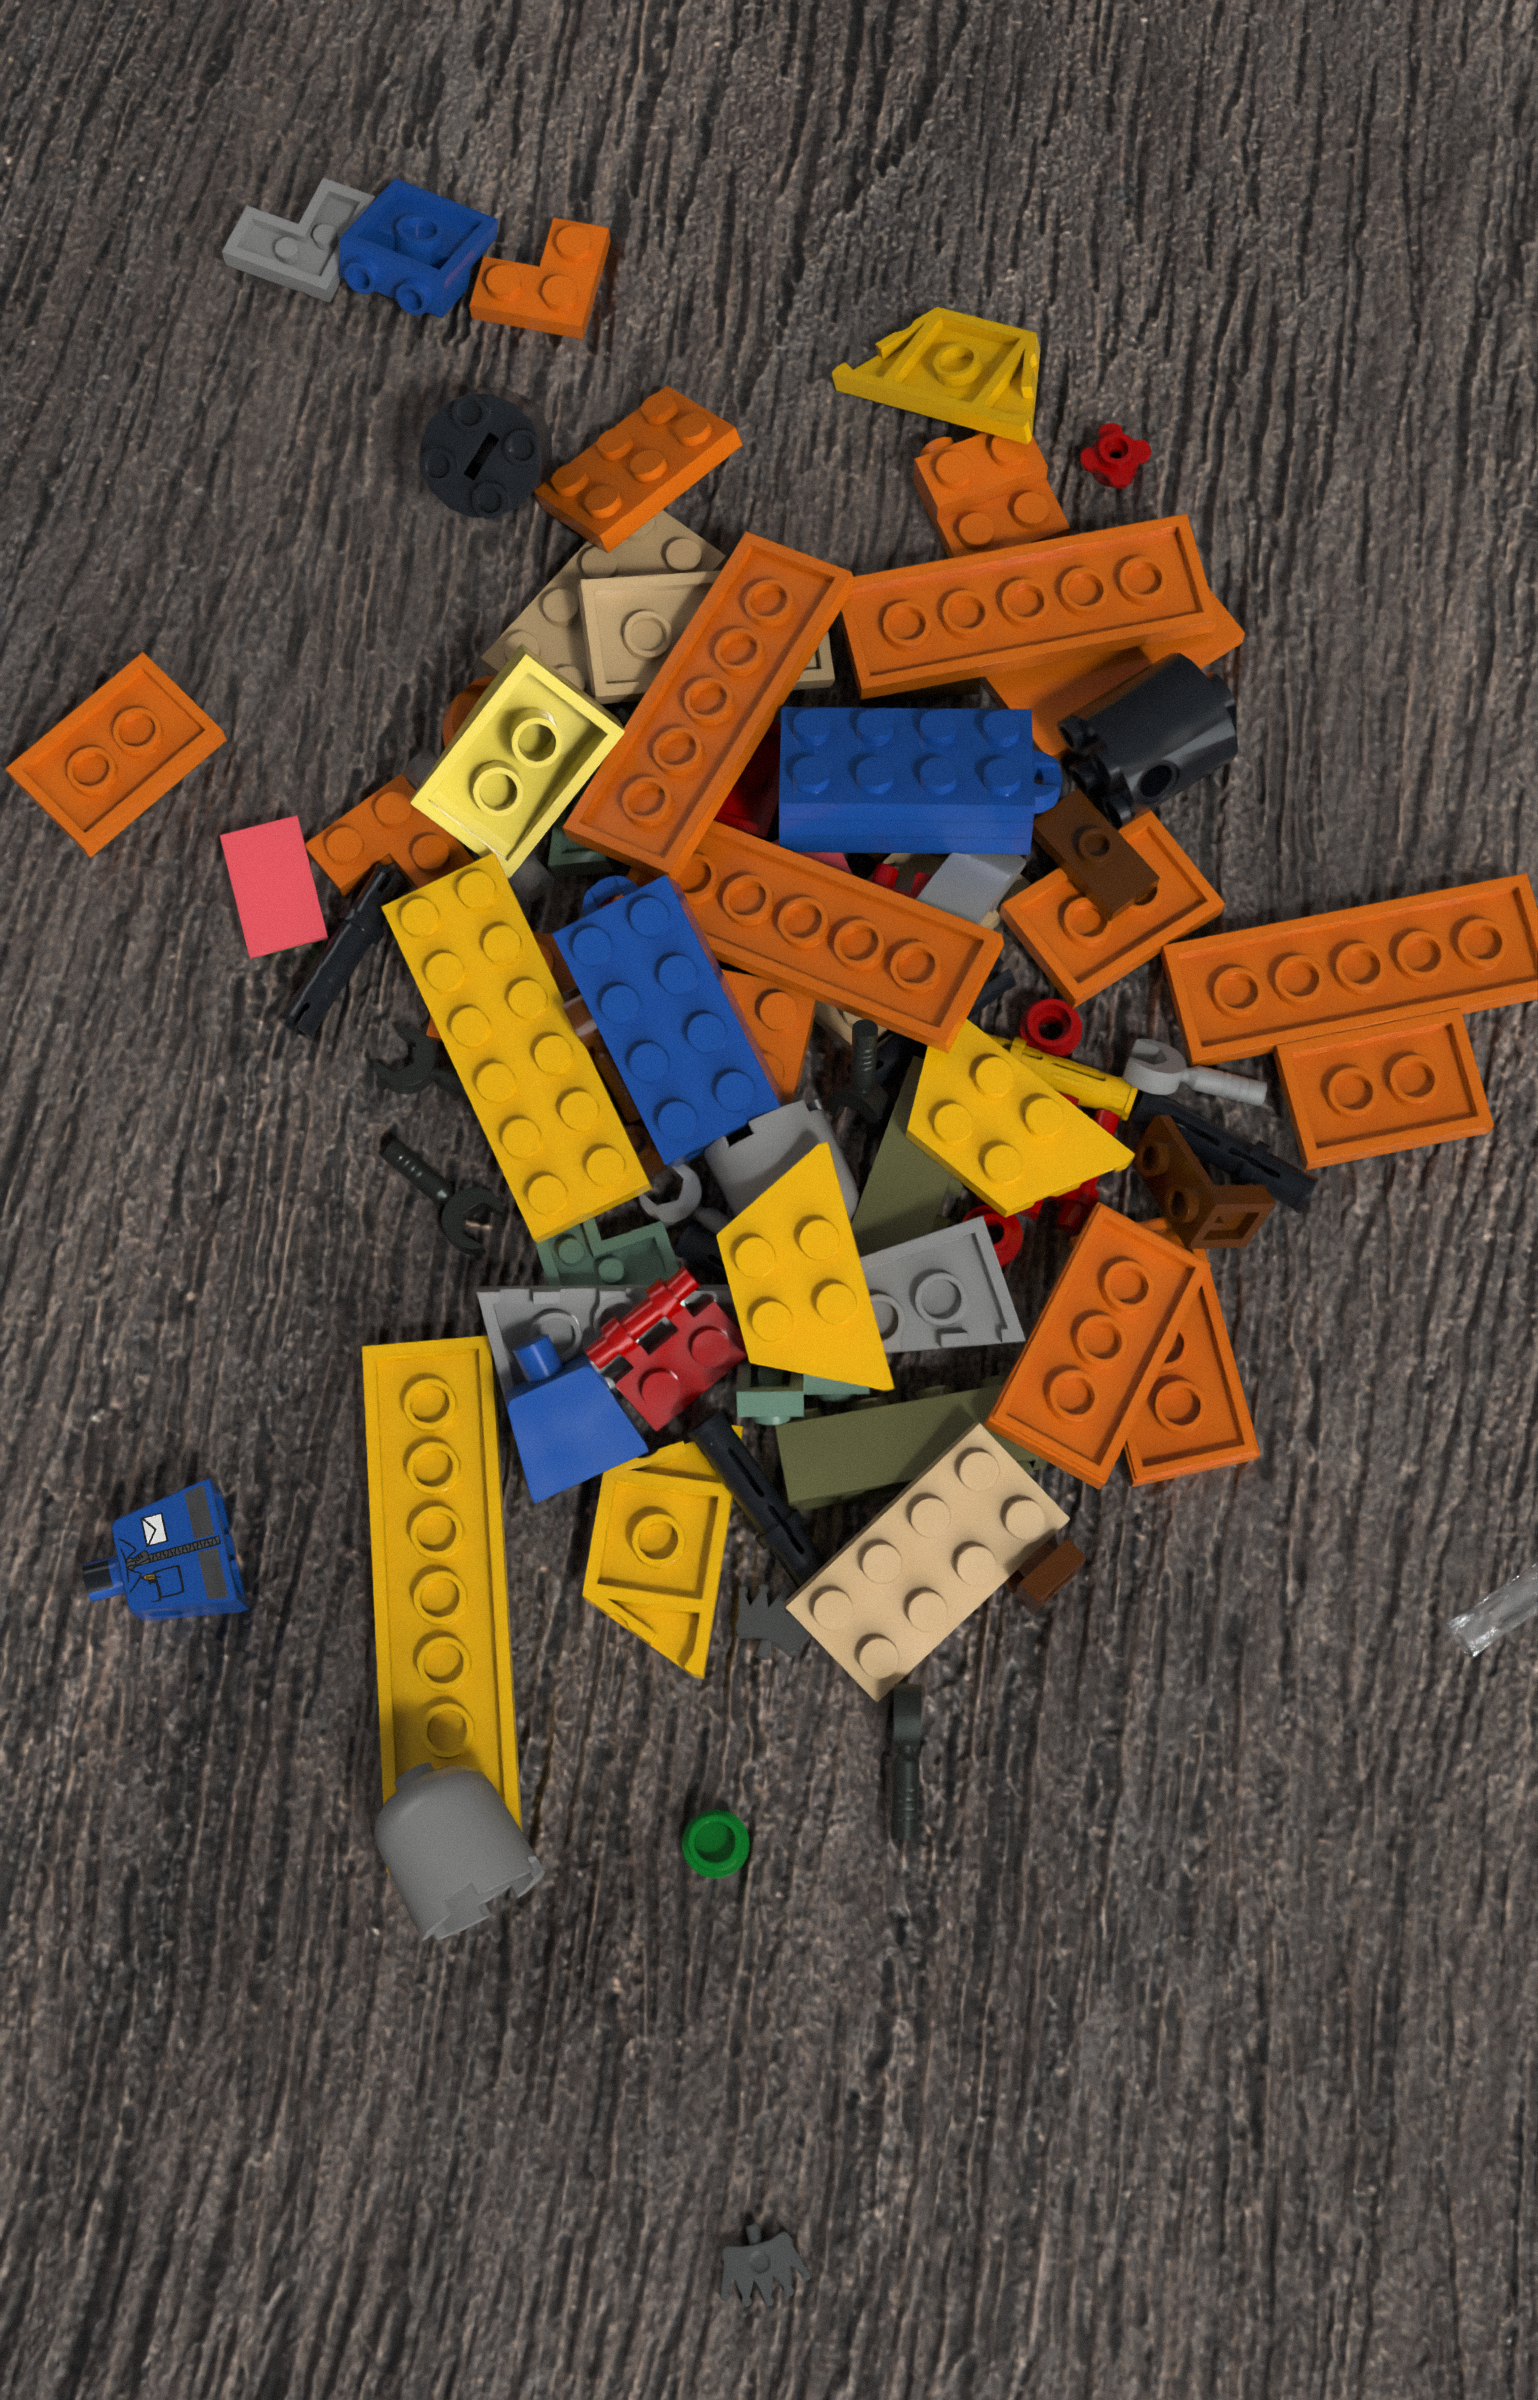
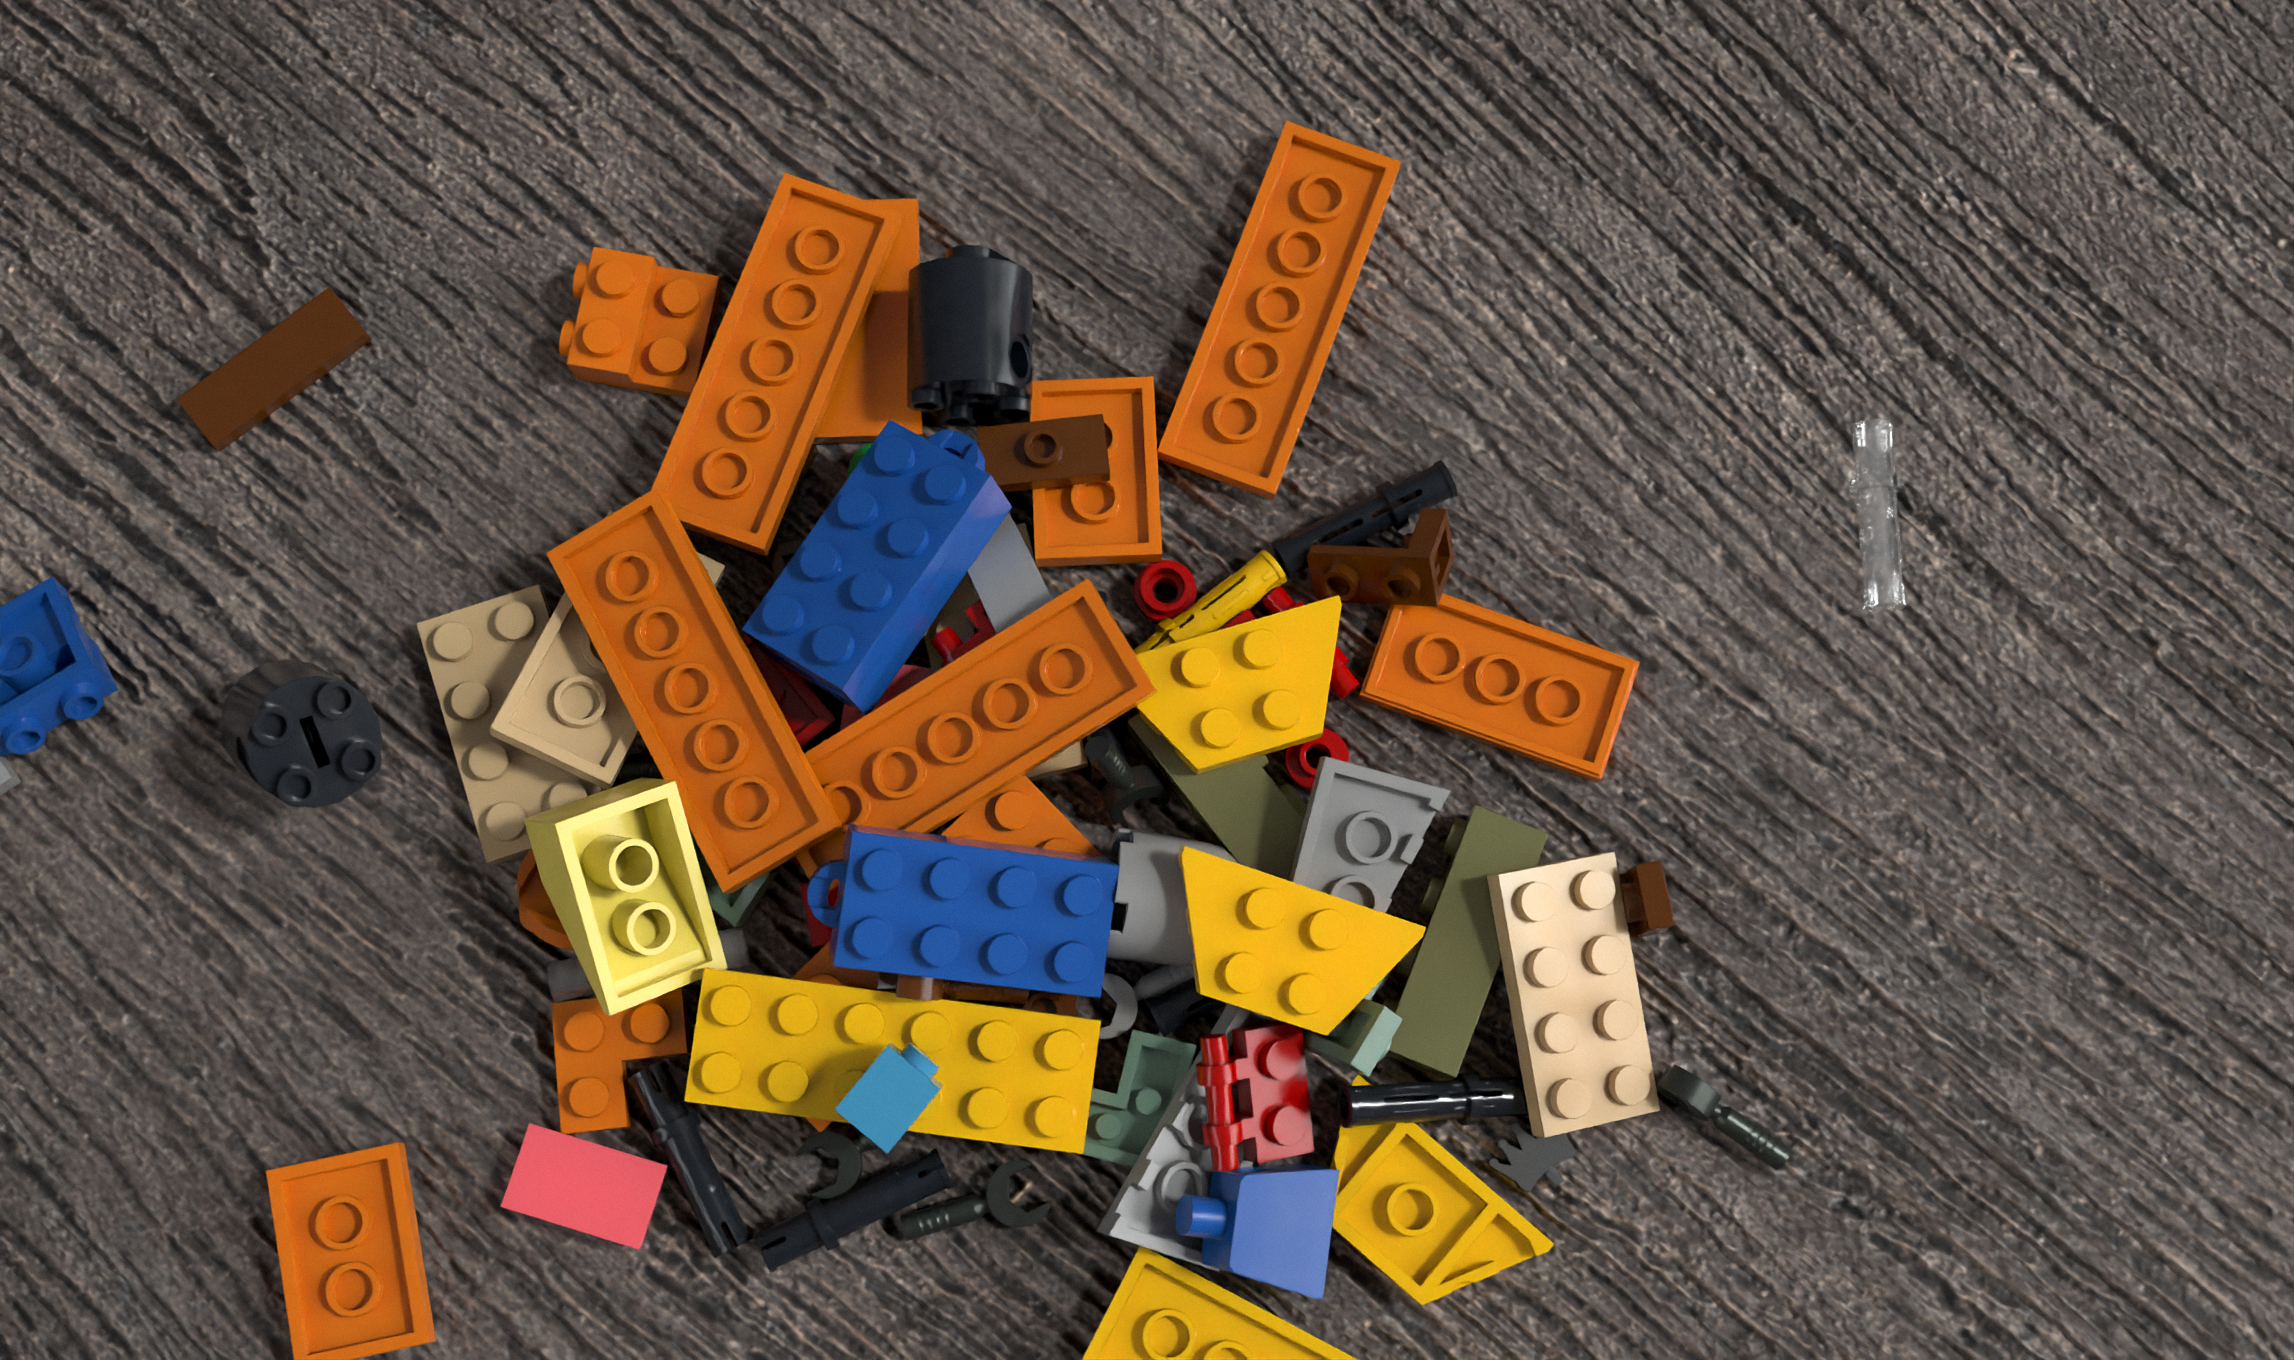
camera: 65 degrees left, 5 degrees up
(360, 1086) = (852, 1210): none -> black pin
(479, 1047) = (891, 1094): none -> dark azure brick
(548, 296) = (162, 577): orange plate -> none
(638, 468) = (402, 606): orange plate -> none
(715, 1844) = (1697, 1321): green plate -> none
(766, 266) = (274, 369): none -> reddish brown tile
(954, 372) = (505, 276): yellow wing -> none
(1097, 1345) = (1478, 733): orange tile -> none
(1112, 471) = (682, 211): red plate -> none
(1161, 1068) = (1268, 516): light grey piece -> none
(1382, 1089) = (1393, 359): orange plate -> none

